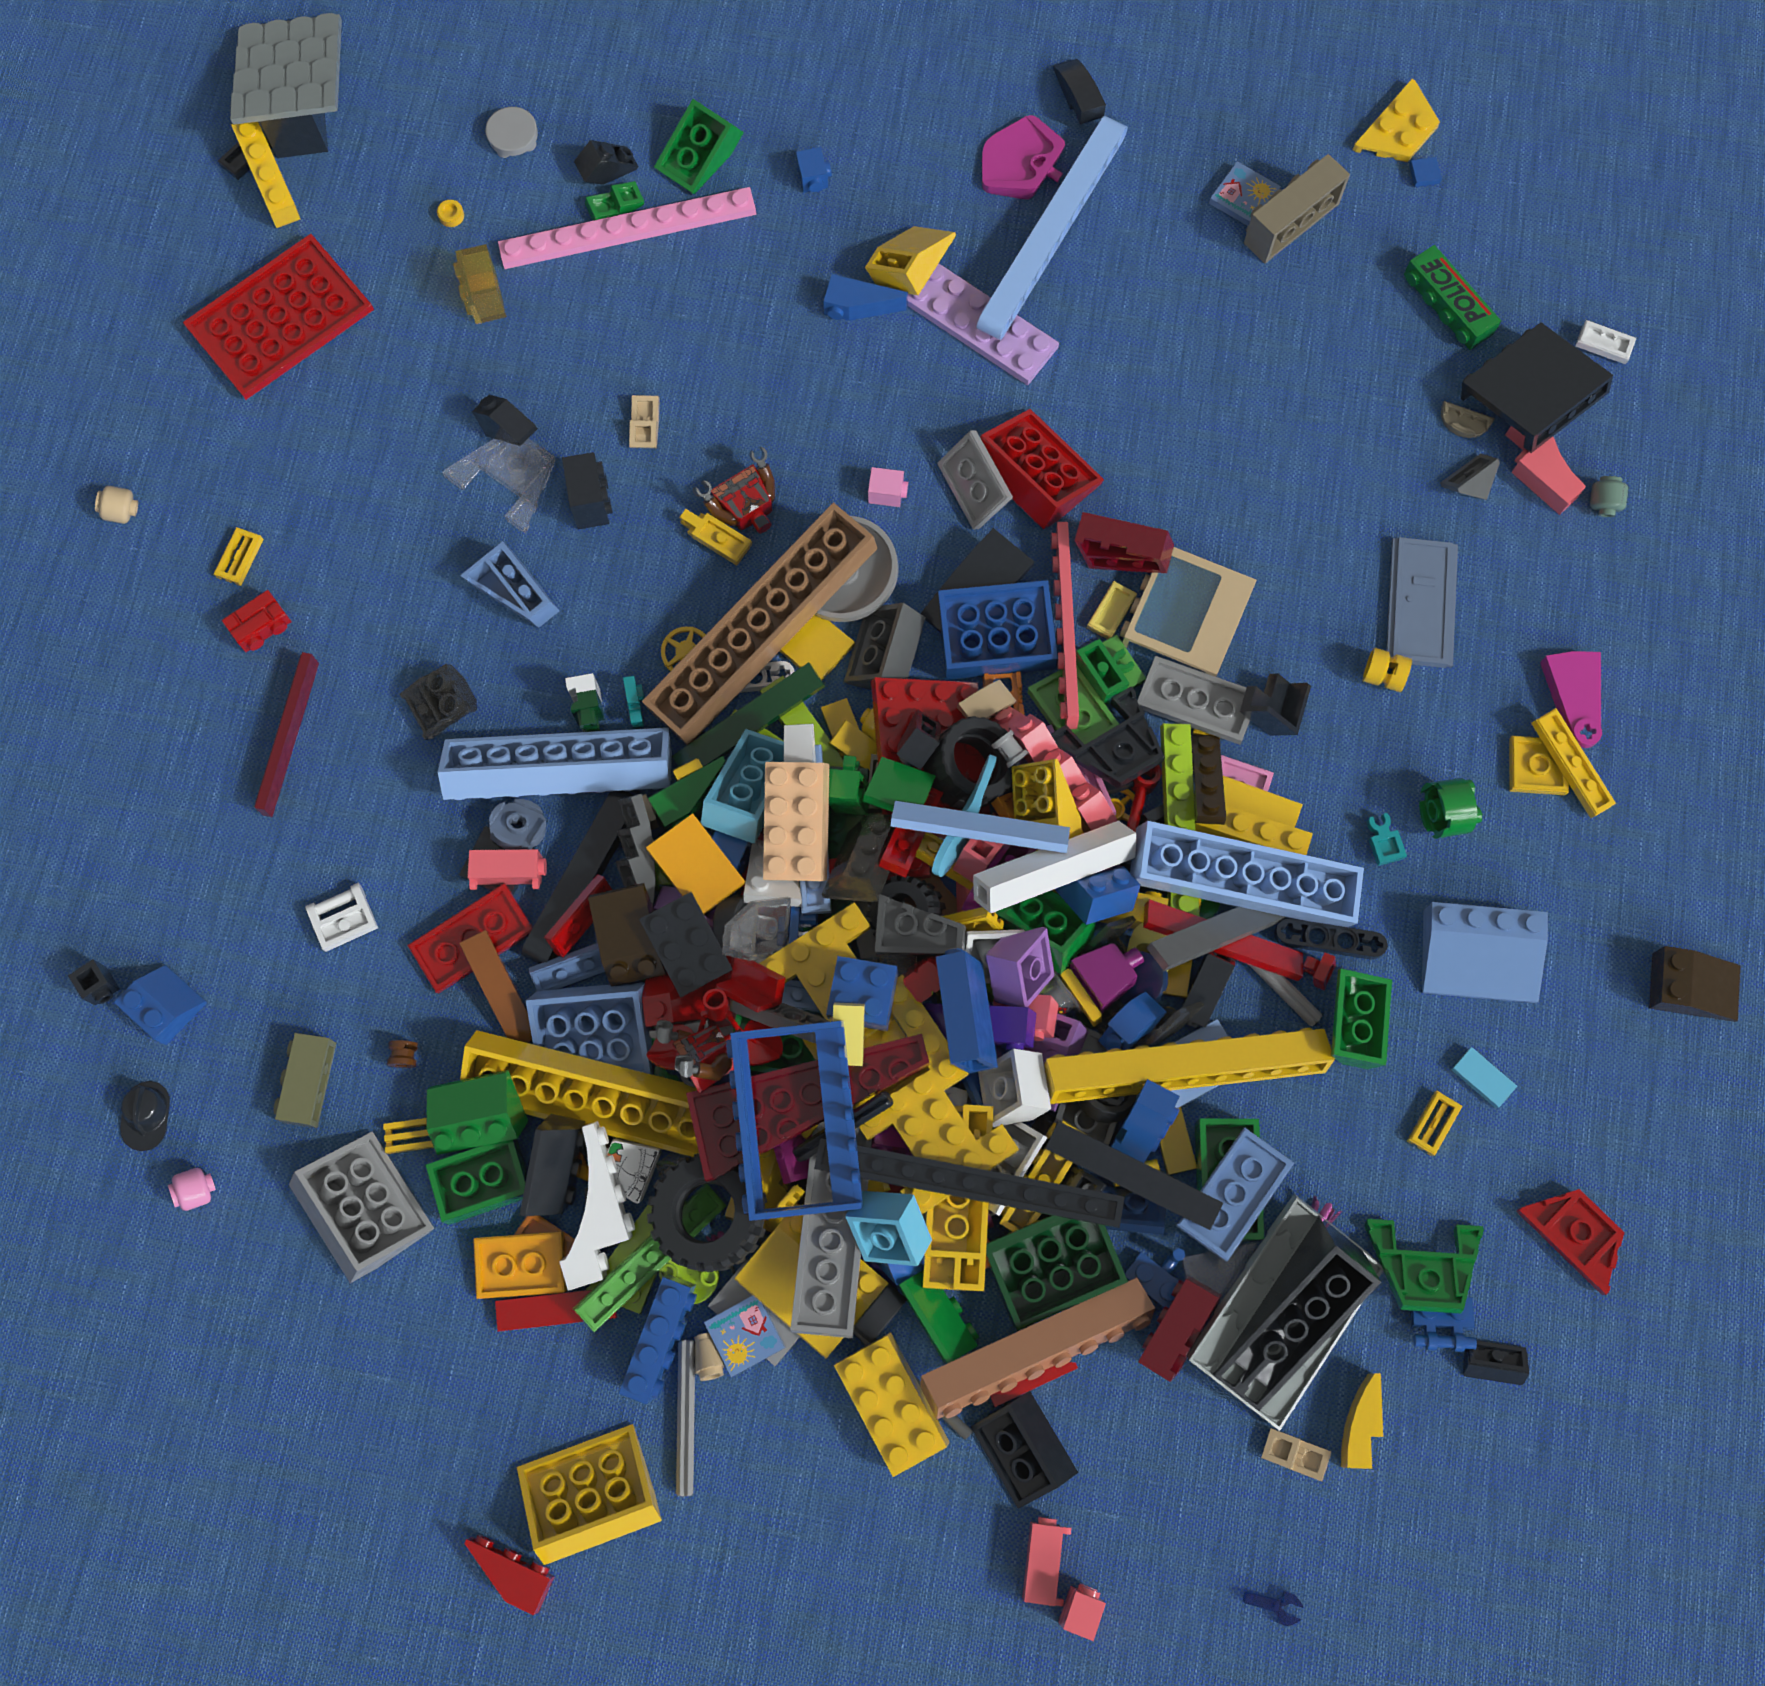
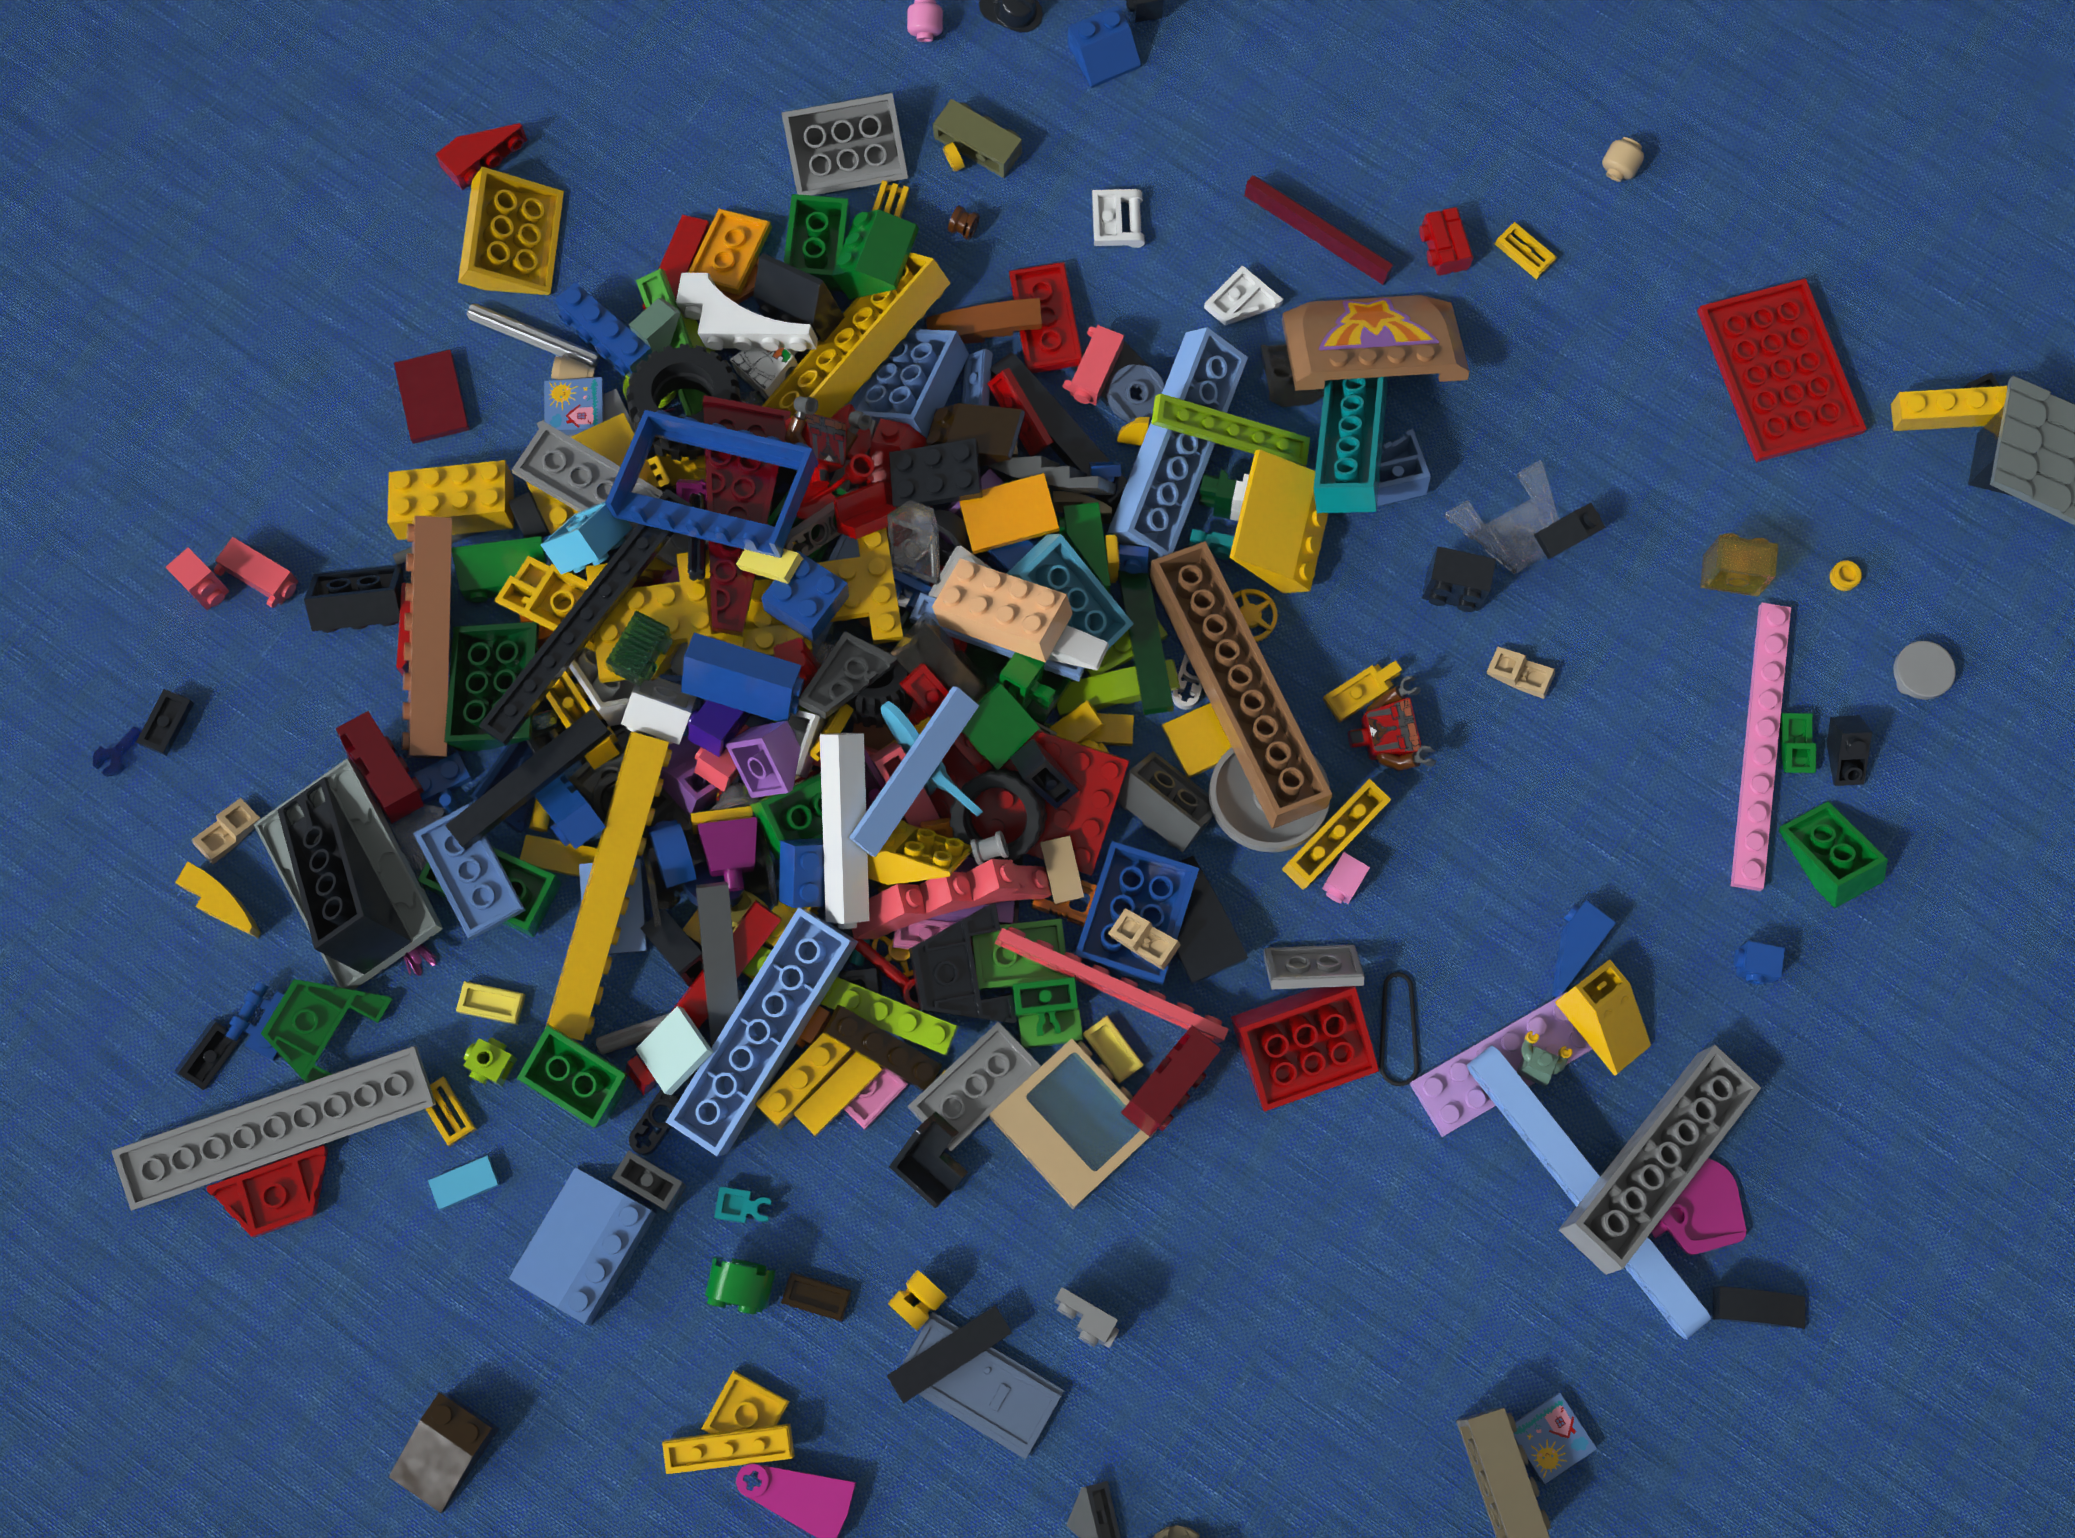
camera: 110 degrees right, 0 degrees up
(334, 1094) = (953, 157): none -> yellow tile
(382, 774) = (1242, 298): none -> white wing
(385, 641) = (1373, 340): none -> medium nougat slope
(494, 613) = (1350, 445): none -> teal brick
(528, 720) = (1228, 429): none -> lime plate
(556, 812) = (1134, 432): none -> yellow tile
(595, 644) = (1279, 524): none -> yellow slope
(610, 812) = (1105, 470): none -> blue plate
(636, 1282) = (656, 324): none -> sand green slope
(681, 754) = (1133, 559): none -> blue plate
(789, 1487) = (431, 396): none -> dark red tile
(887, 512) = (1336, 834): none -> yellow brick
(973, 287) = (1539, 1064): none -> sand green piece
(979, 1117) = (639, 649): none -> clear green brick
(991, 419) = (1383, 1026): none -> black piece
(1009, 176) = (1659, 1160): none -> light grey brick
(1020, 606) = (1144, 939): none -> tan slope
(1227, 1572) = (165, 722): none -> black plate
(1298, 941) = (674, 1050): none -> light aqua tile
(1326, 1132) = (490, 1003): none -> light yellow tile
(1335, 533) = (1094, 1324): none -> light grey plate
(1379, 1102) = (497, 1067): none -> lime brick
(1408, 918) = (649, 1181): none -> dark grey brick
(1414, 628) = (949, 1354): none -> black tile
(1422, 752) = (816, 1297): none -> dark brown tile
(1531, 1261) = (273, 1127): none -> light grey plate

